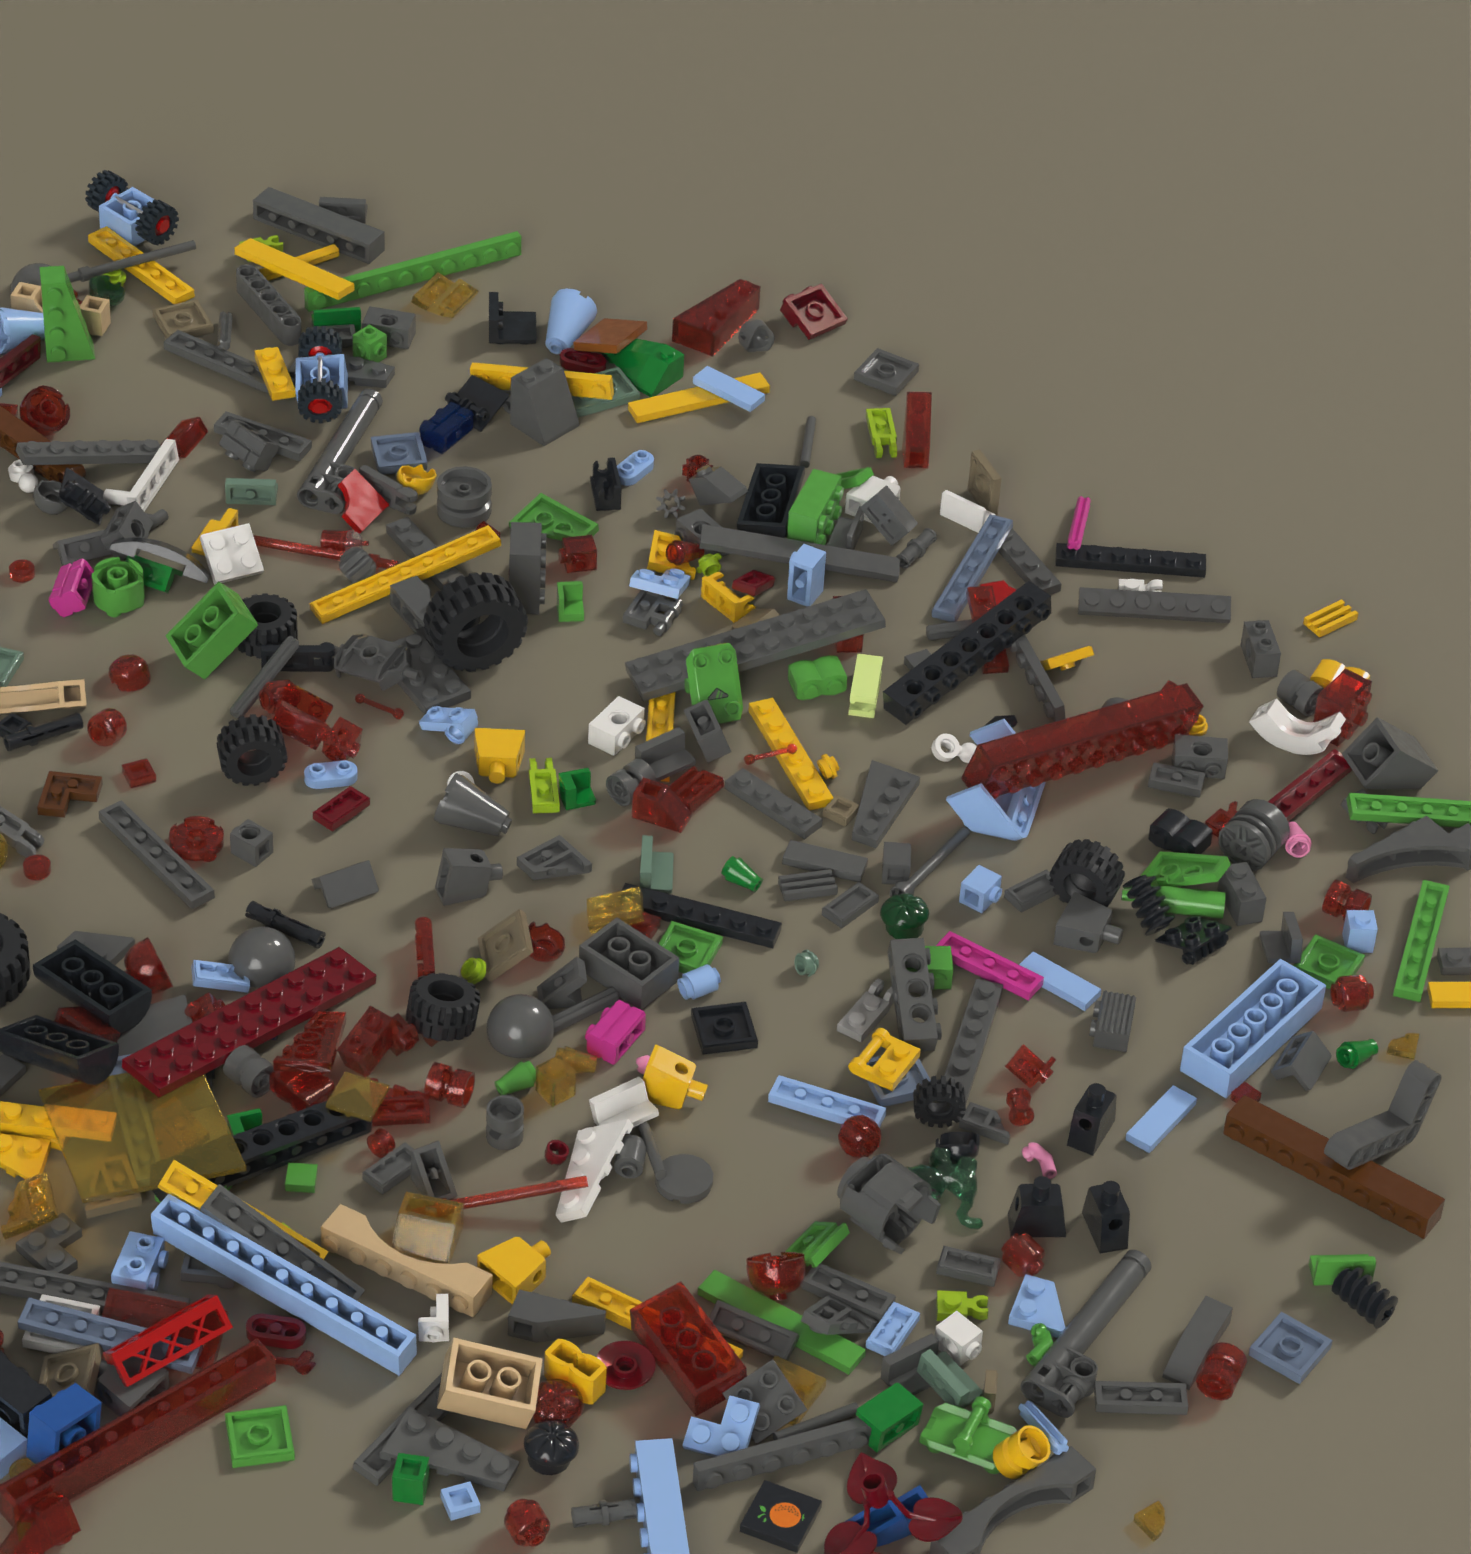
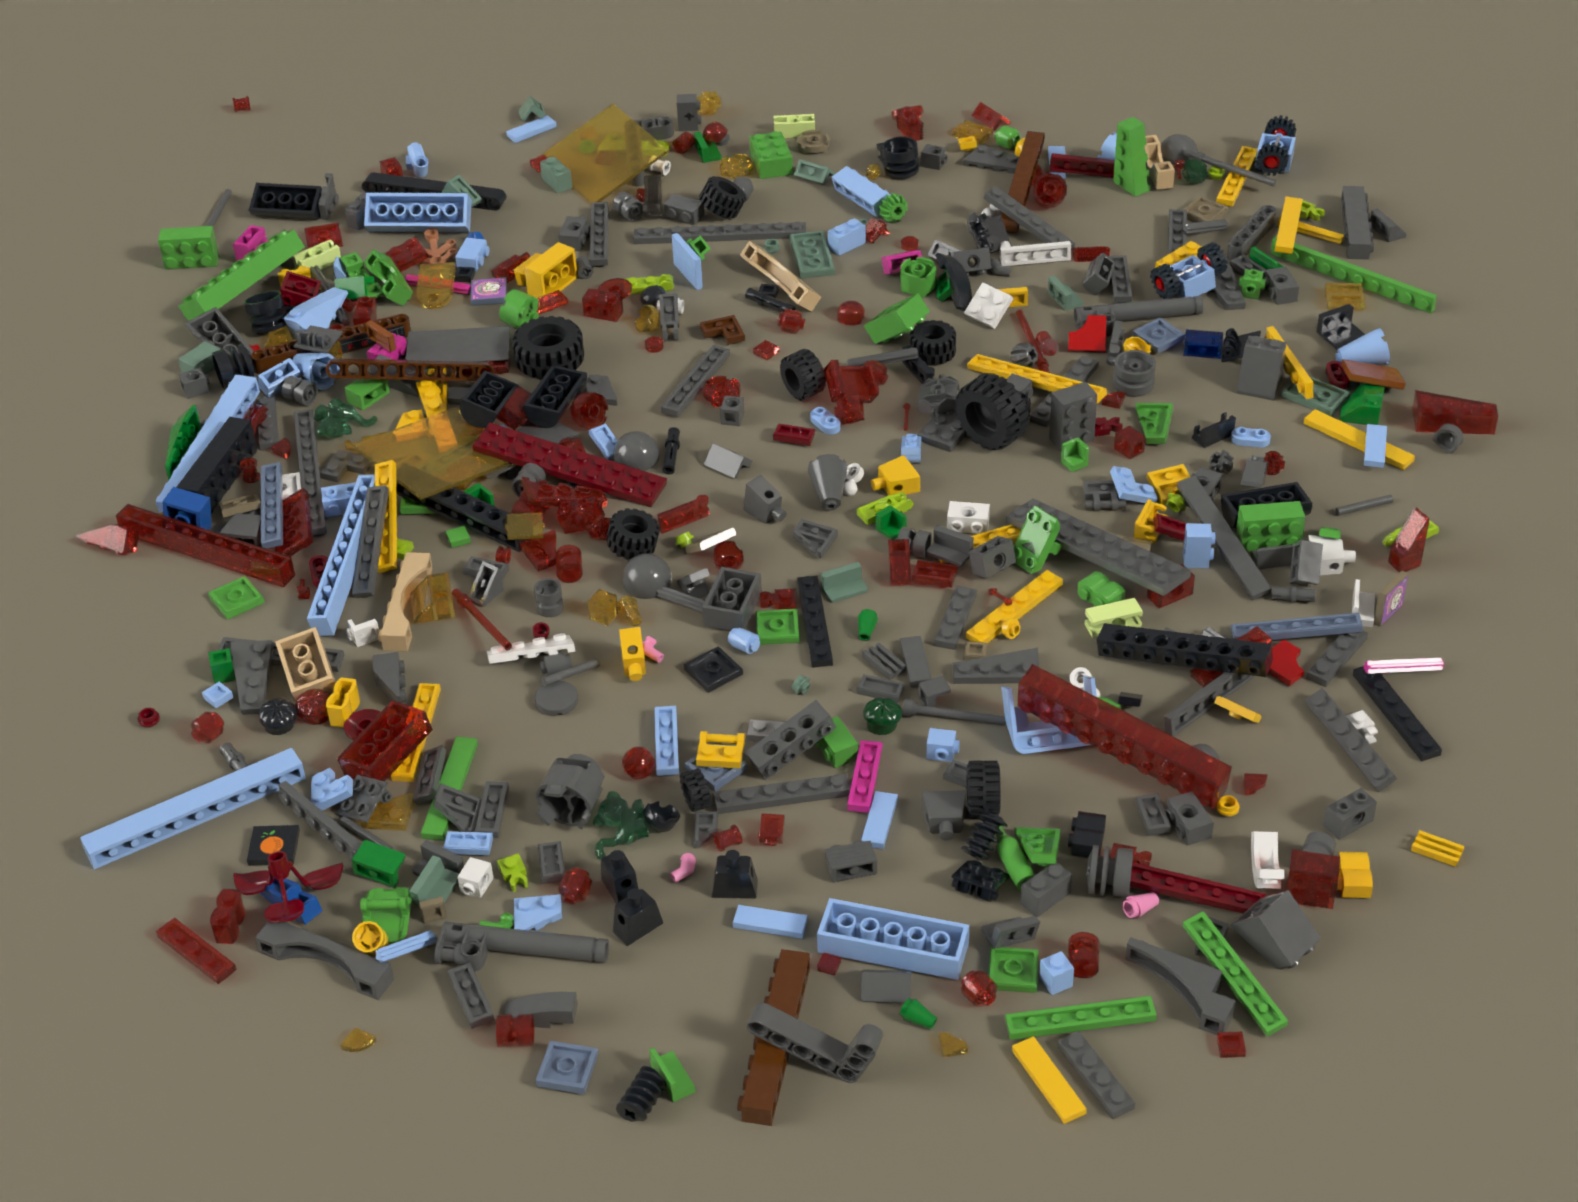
camera: 70 degrees right, 0 degrees up
(163, 1329) = (265, 514): red fence -> none
(515, 1266) = (425, 648): yellow torso -> none
(518, 1078) = (590, 589): bright green cone -> none
(615, 1031) = (668, 618): dark pink brick -> none
(623, 1102) = (598, 645): white panel -> none
(624, 904) = (783, 577): clear yellow plate -> none
(682, 552) = (1167, 482): clear red cone -> none
(776, 1273) = (480, 763): clear red cylinder -> none
(813, 311) = (1509, 454): dark red plate -> none
(819, 1241) = (521, 776): bright green plate -> none
(886, 371) = (1483, 513): dark grey plate -> none

